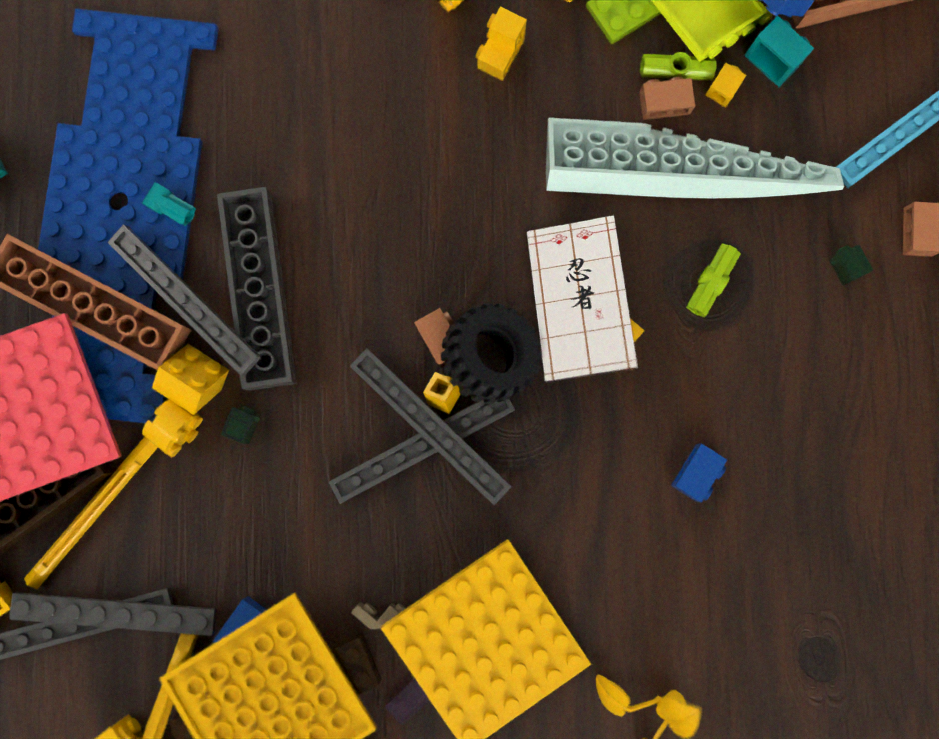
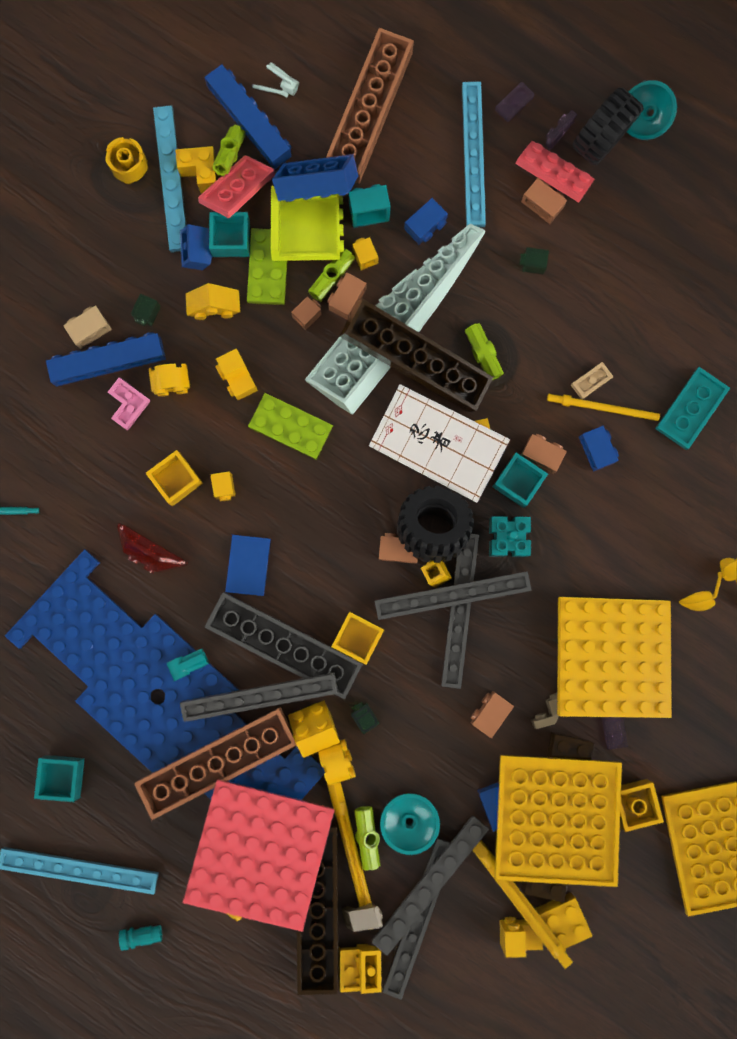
camera: 60 degrees left, 0 degrees up
(32, 567) = (362, 918): none -> dark tan slope
(107, 524) = (369, 848): none -> lime piece
(145, 551) = (413, 837): none -> teal dish
(256, 86) = (147, 552): none -> clear red wedge
(315, 197) = (248, 565): none -> blue tile
(316, 358) = (357, 638): none -> yellow piece
(335, 555) = (491, 714): none -> nougat brick
(350, 58) = (174, 478): none -> yellow piece
(378, 113) = (223, 486): none -> yellow brick
(489, 138) = (290, 426): none -> lime plate
(536, 443) = (509, 536): none -> teal brick
(603, 411) = (520, 480): none -> teal piece
(619, 70) = (307, 312): none -> nougat brick
(650, 417) = (543, 453): none -> nougat brick
(654, 207) = (416, 356): none -> dark brown brick
(726, 403) = (567, 400): none -> yellow bar
(767, 415) = (592, 380): none -> tan plate
(807, 122) = (426, 221): none -> blue brick
(817, 544) = (692, 408): none -> teal plate

